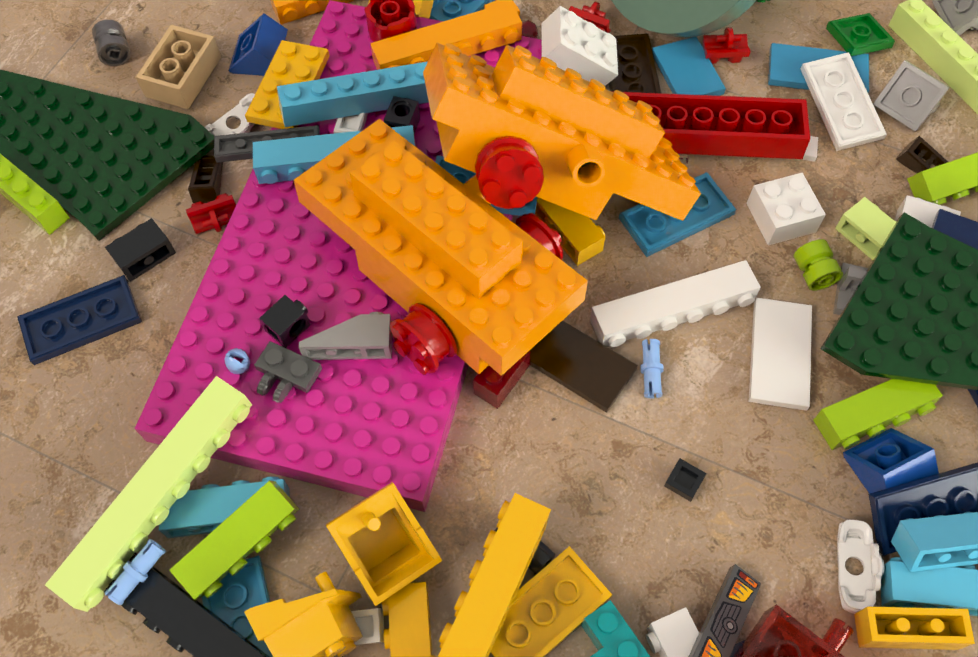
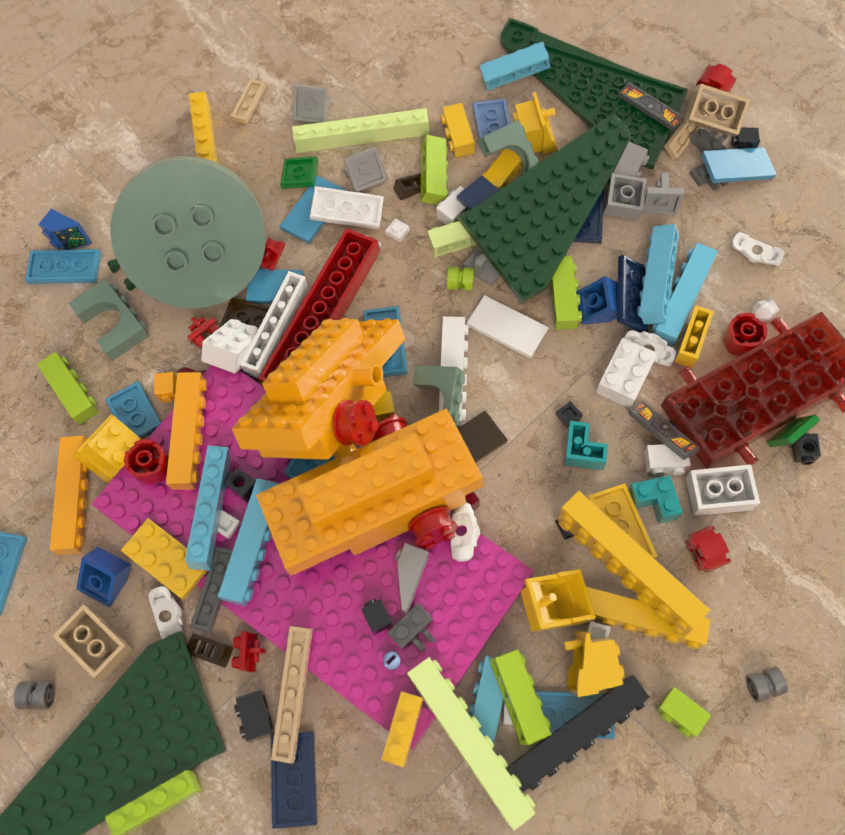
camera: 65 degrees left, 5 degrees up
(135, 572) = (521, 769): light blue pin -> none
(144, 400) = (402, 729): none -> yellow brick
(168, 268) = (291, 694): none -> tan plate
(419, 392) = (463, 546): none -> white piece
(633, 508) = (580, 451): none -> teal brick
(642, 296) = (447, 380): none -> sand green arch
(645, 76) = (275, 323): none -> white brick
(652, 368) = (490, 403): light blue pin -> none
(785, 208) = (412, 278): white brick -> none
(794, 541) = (626, 373): none -> white brick
(847, 170) = (397, 230): none -> white plate

